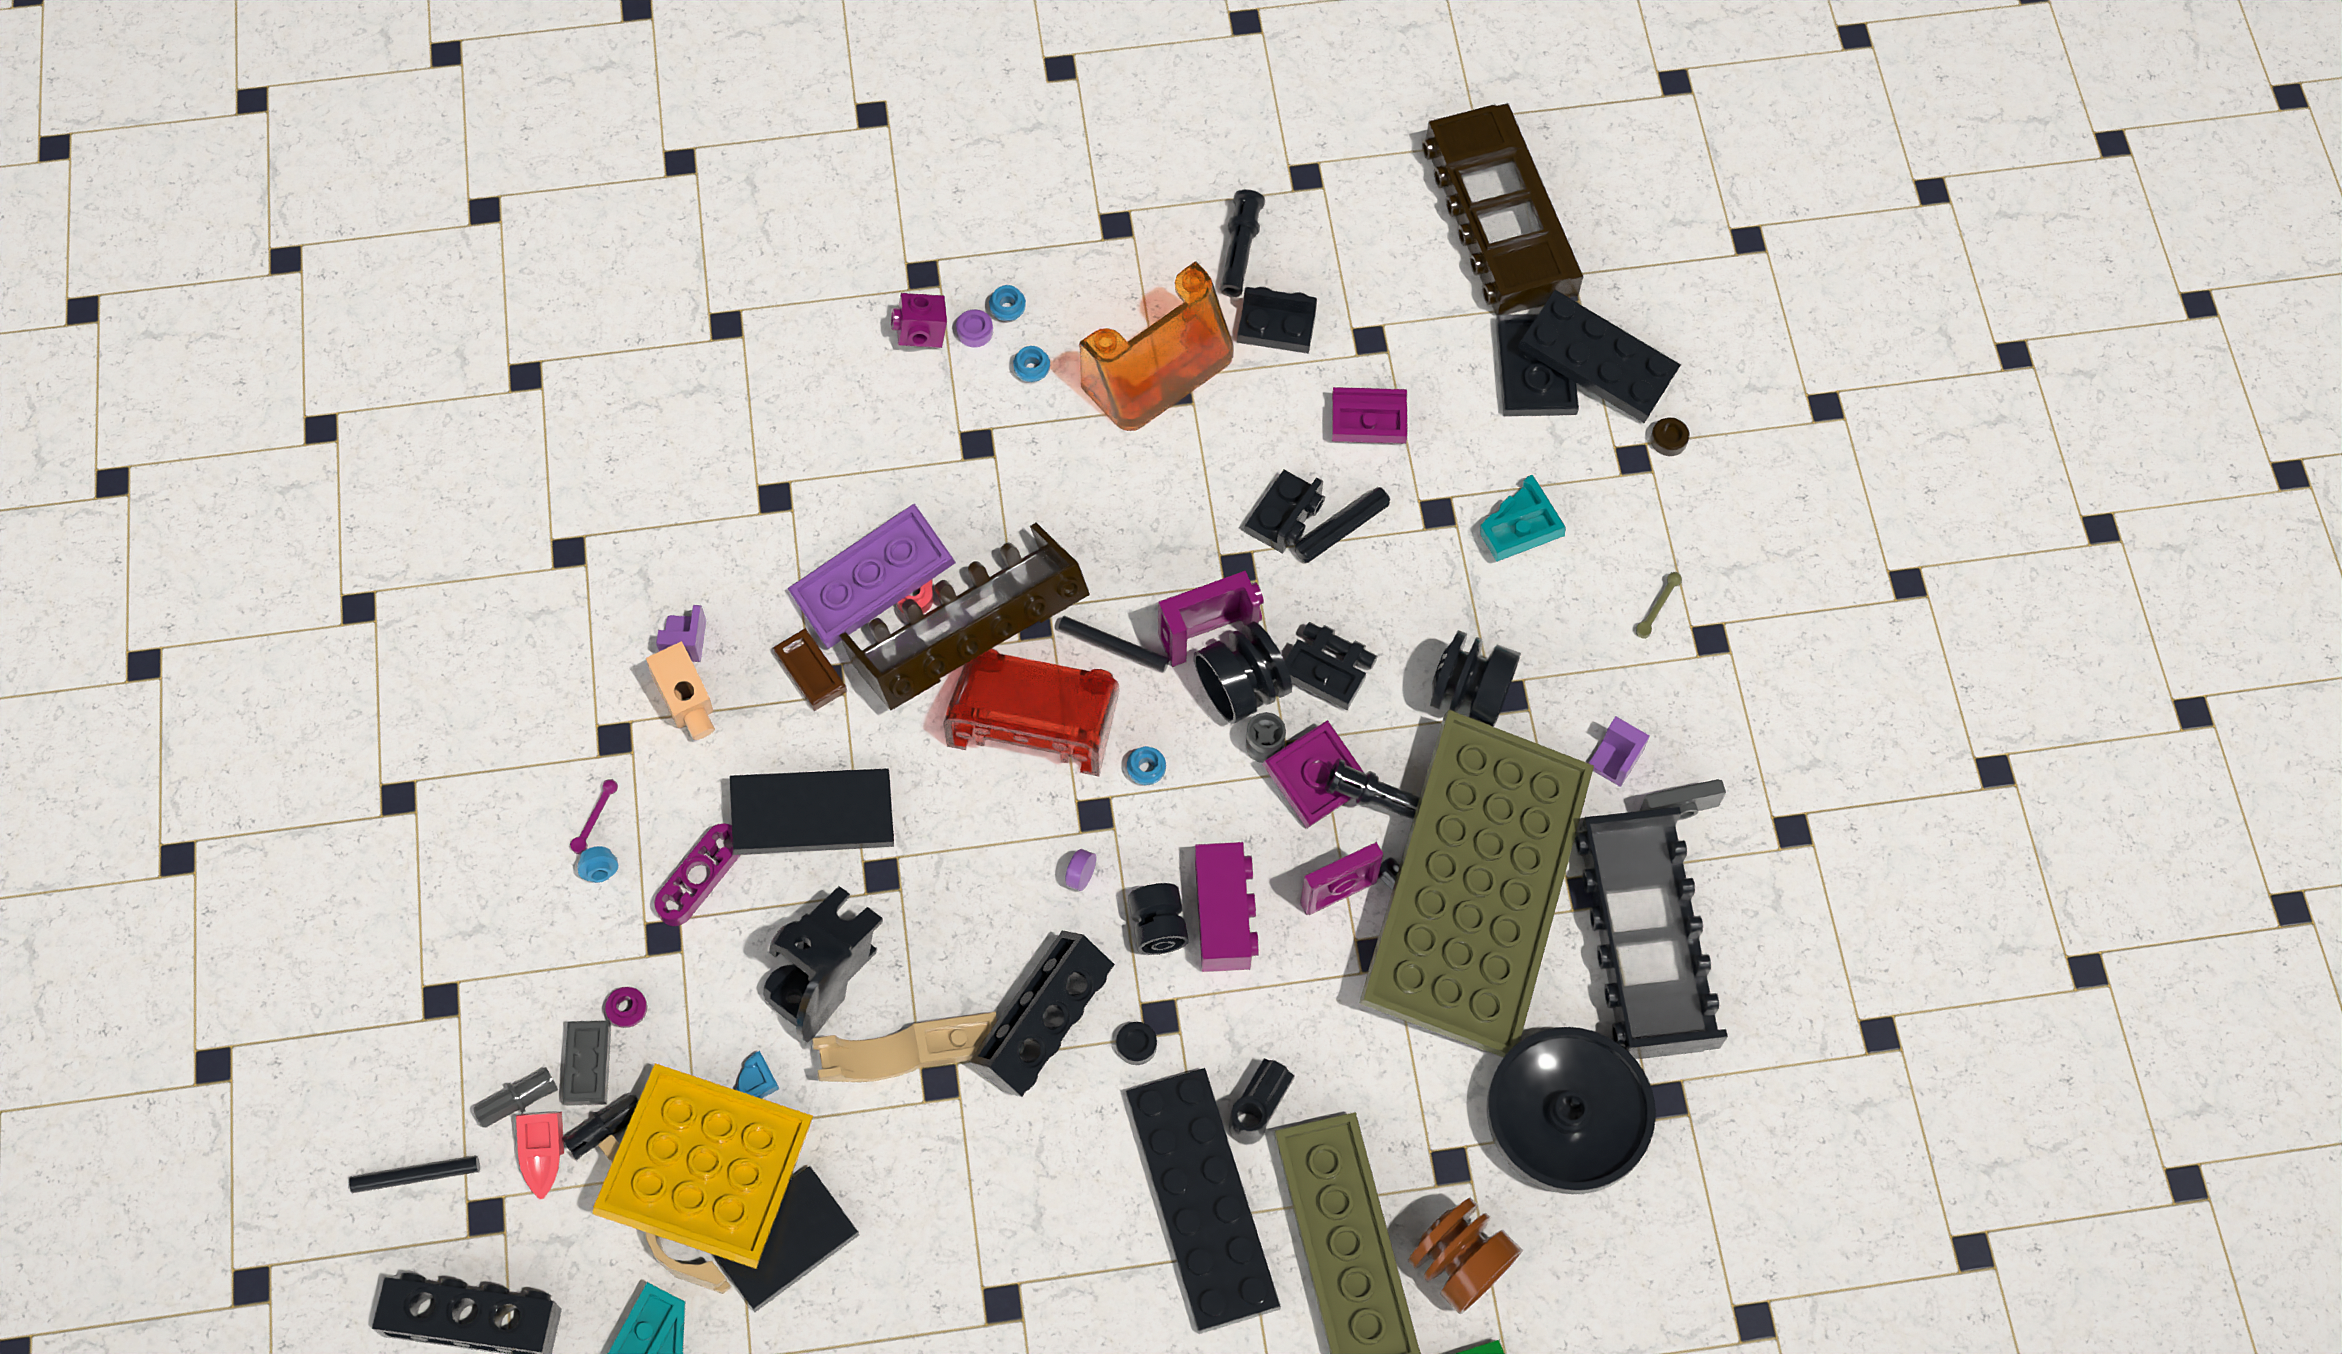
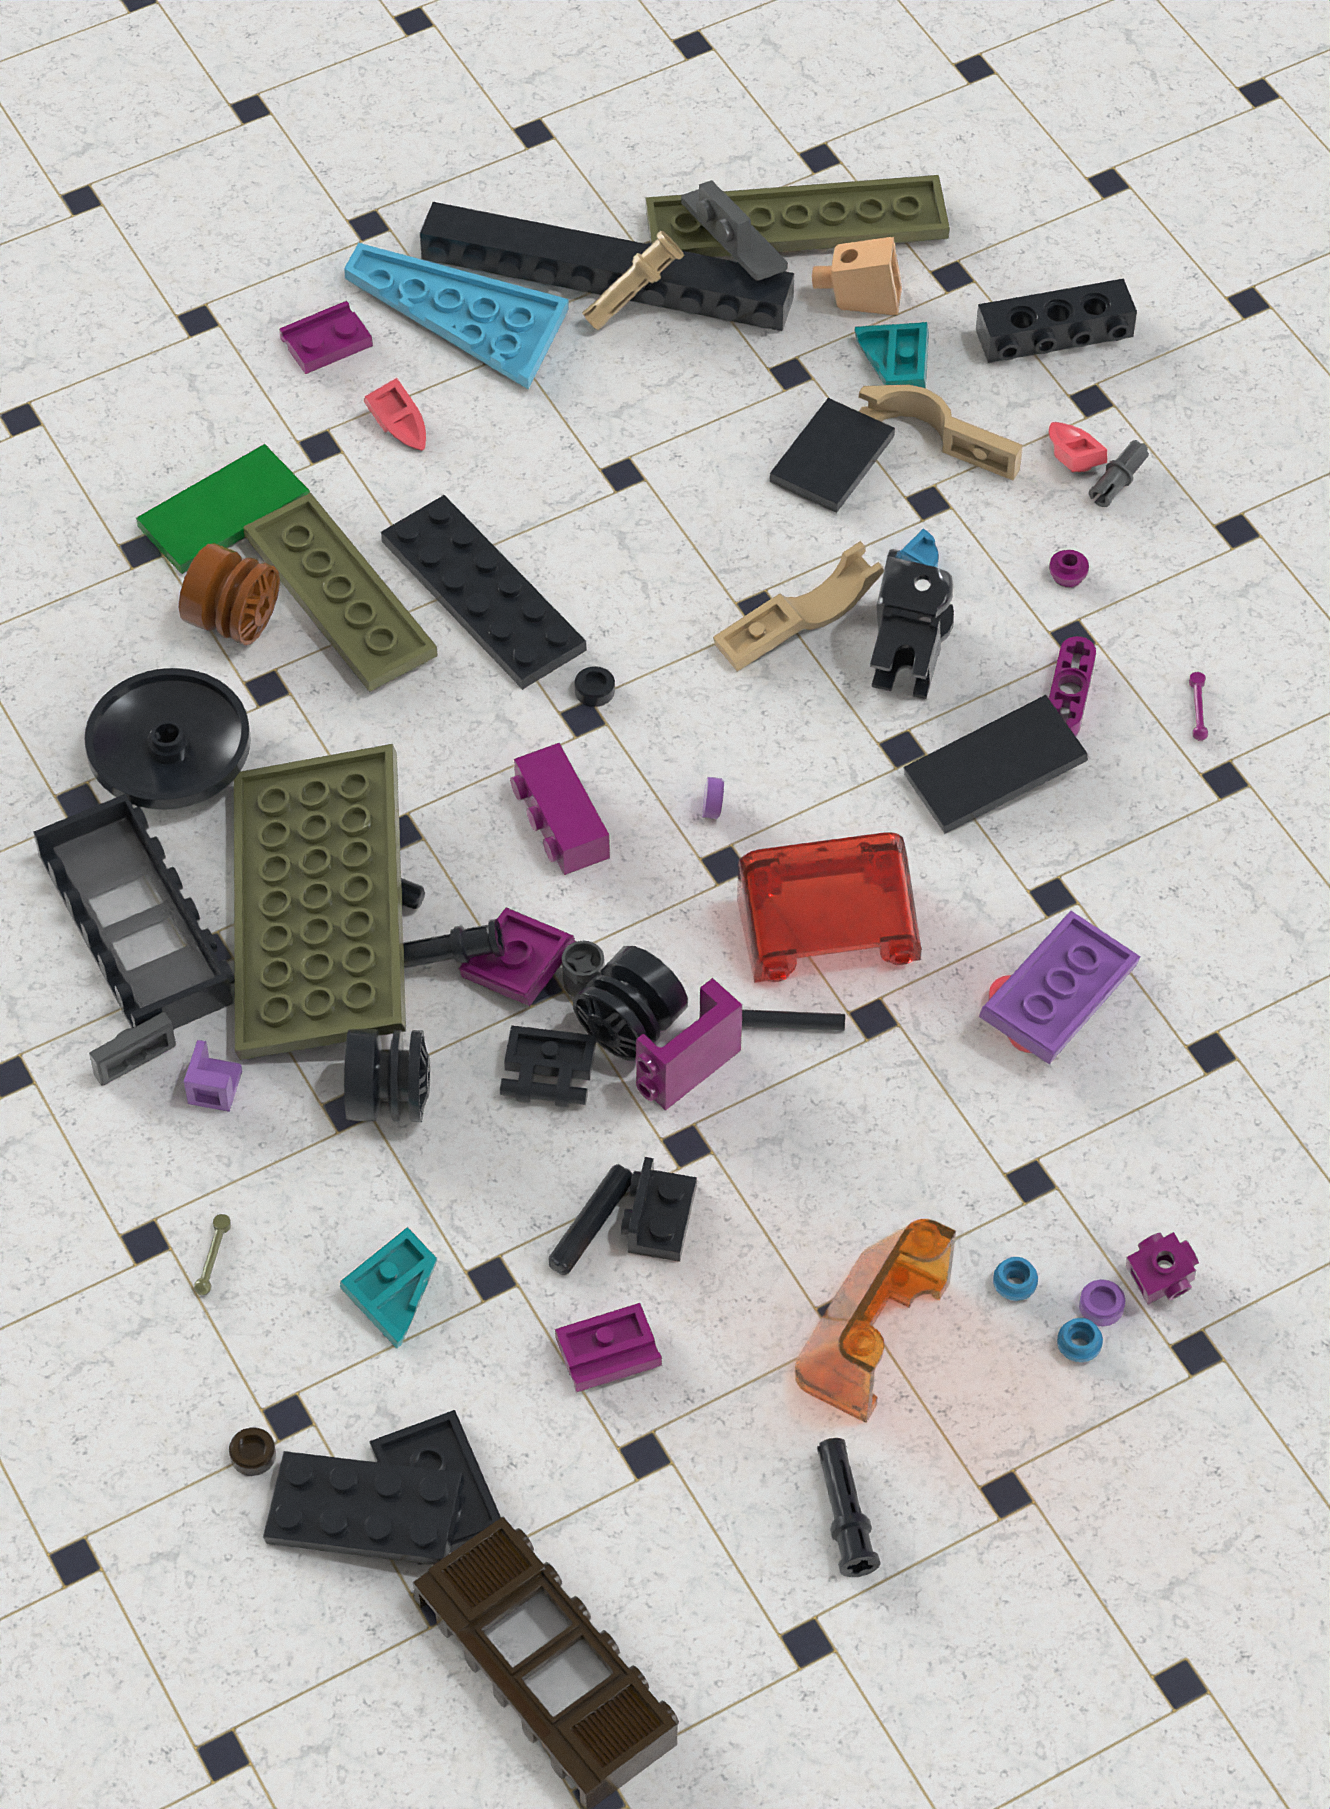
camera: 160 degrees right, 10 degrees down
(414, 1174) = (1168, 404): black bar -> none
(587, 1063) = (1075, 515): dark grey plate -> none
(597, 864) = (1166, 659): dark azure plate -> none
(601, 1126) = (1032, 476): black axle -> none
(679, 680) = (1182, 815): light nougat torso -> none
(685, 629) = (1213, 876): medium lavender panel -> none
(703, 1165) = (923, 457): yellow plate -> none
(809, 669) = (1070, 891): reddish brown tile -> none
(970, 623) = (938, 966): dark brown window -> none
(1023, 1021) = (689, 664): black brick -> none
(1146, 755) = (693, 904): dark azure plate -> none
(1157, 912) = (618, 774): black wheel -> none
(1260, 1100) = (460, 666): black piece -> none
(1277, 319) = (760, 1427): black bracket -> none
(1341, 879) = (454, 849): magenta plate -> none

